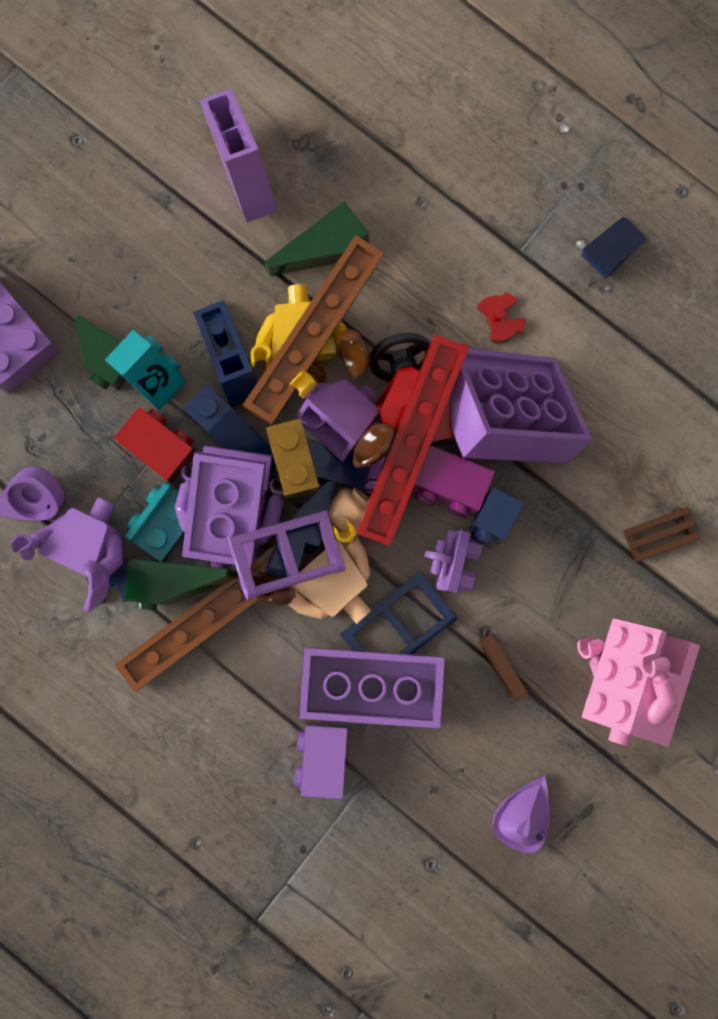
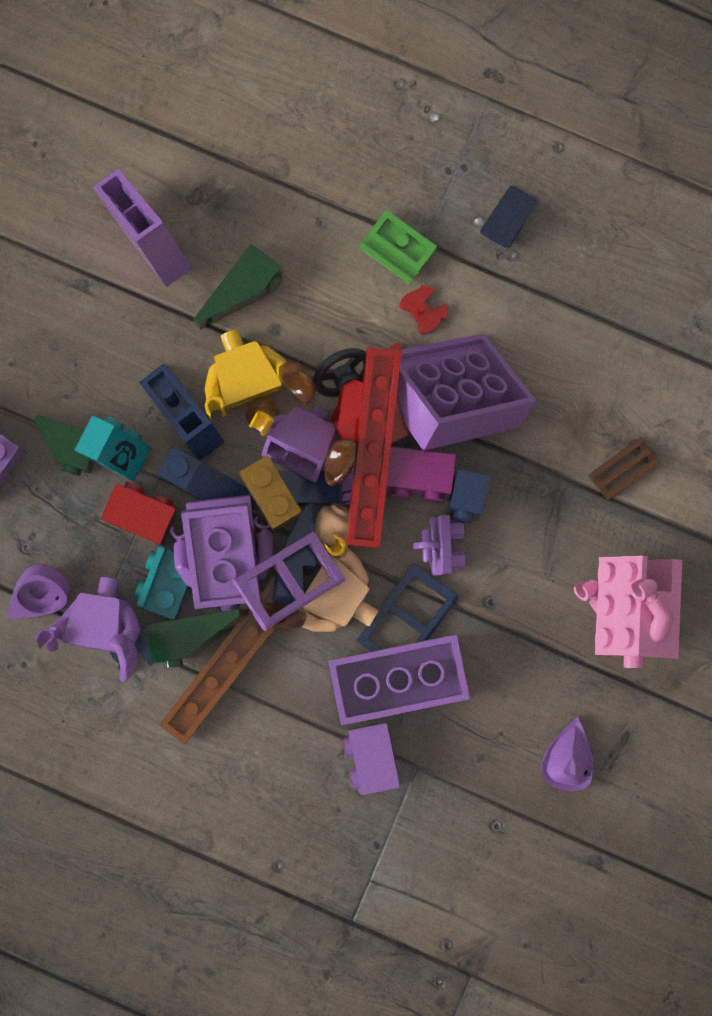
camera: 15 degrees left, 0 degrees up
(313, 329) = (256, 369): dark orange plate -> none
(492, 247) = (397, 247): none -> bright green plate
(502, 667) = (511, 629): reddish brown tile -> none

